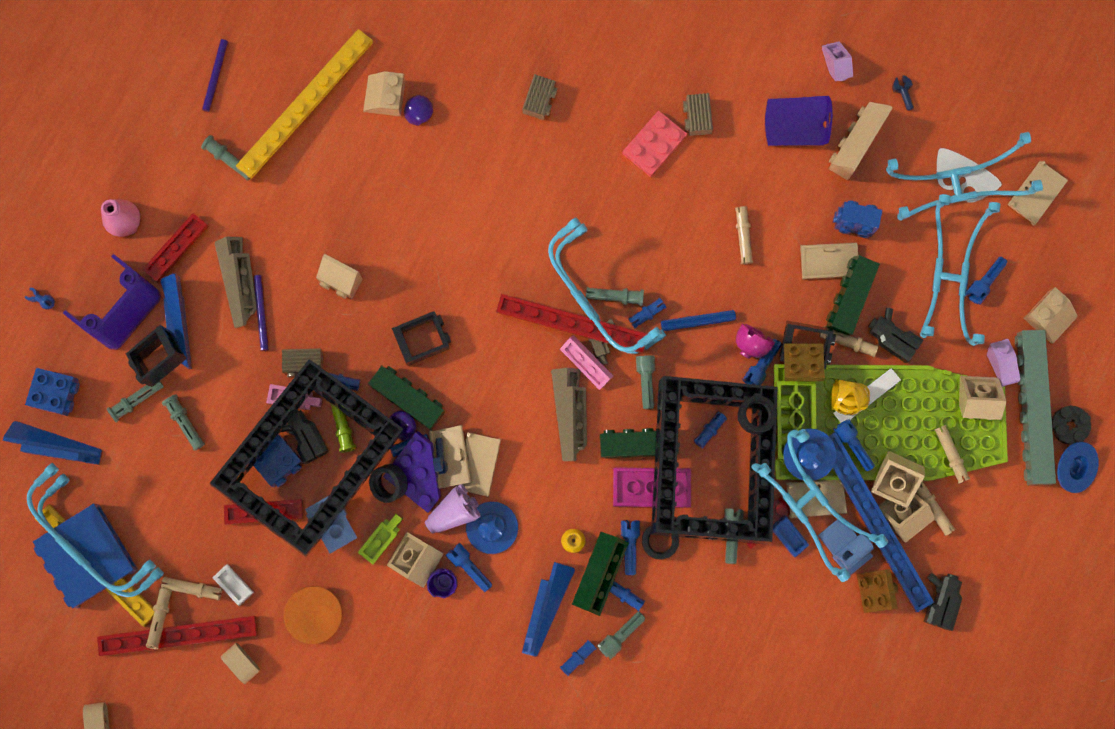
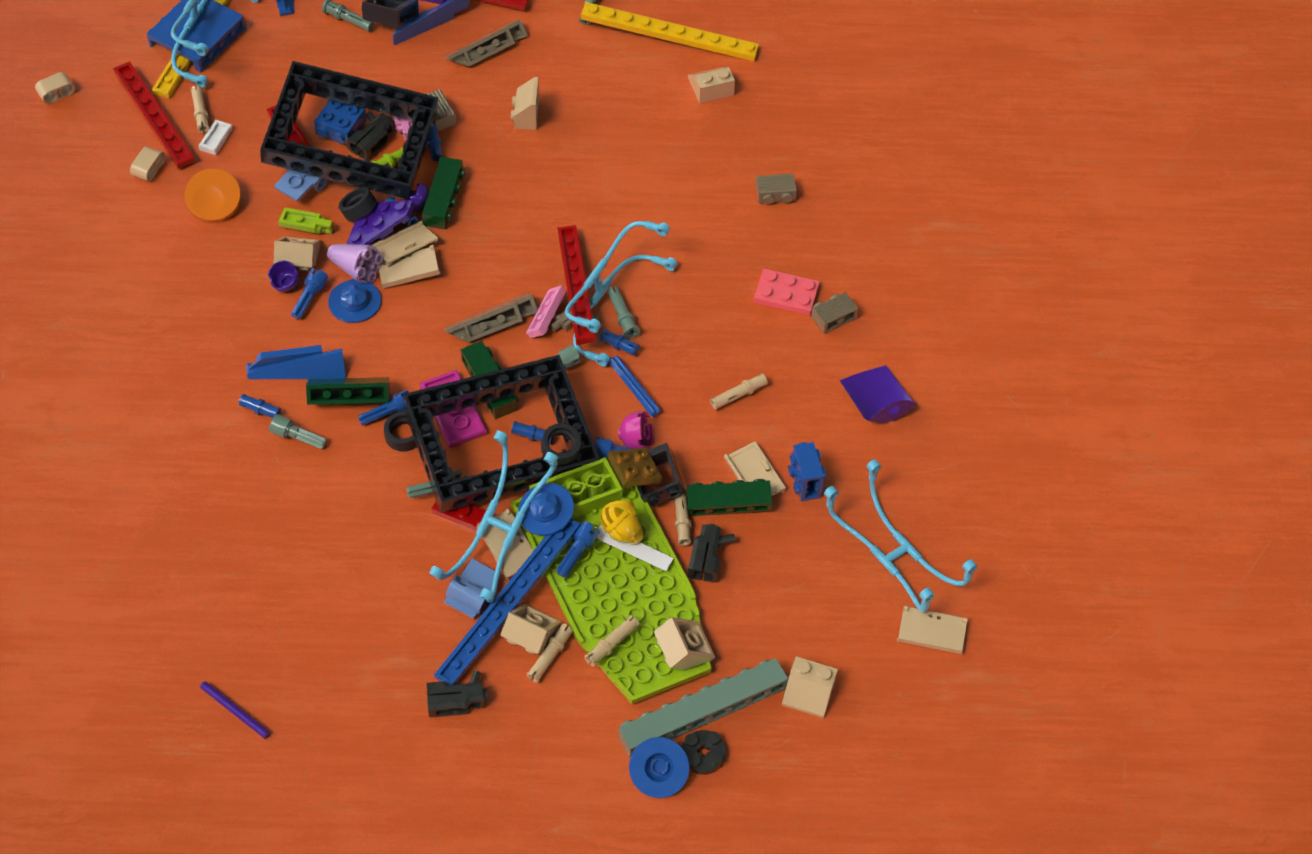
camera: 65 degrees right, 25 degrees down
(161, 610) = (163, 93): tan pin -> none
(179, 415) = (348, 48): sand green pin -> none
(261, 312) = (466, 71): dark purple bar -> none
(398, 332) = (494, 170): black window -> none
(418, 110) = (711, 110): dark purple hair -> none
(439, 463) = (393, 239): dark blue bar -> none
(567, 543) = (374, 369): yellow plate -> none
(627, 596) = (337, 423): blue pin -> none
(789, 536) = (458, 535): blue tile -> none
(838, 61) = (956, 404): lavender slope -> none
(859, 139) = (889, 449): tan slope -> none
(877, 591) = (438, 627): pearl gold plate -> none
(898, 479) = (561, 598): tan slope -> none
(904, 91) = (964, 465): dark blue bar -> none
(926, 330) = (738, 602): medium azure bar -> none
(980, 179) = (914, 573): white piece -> none
(981, 288) = (803, 612): blue piece -> none
(1004, 362) = (734, 655): lavender slope -> none

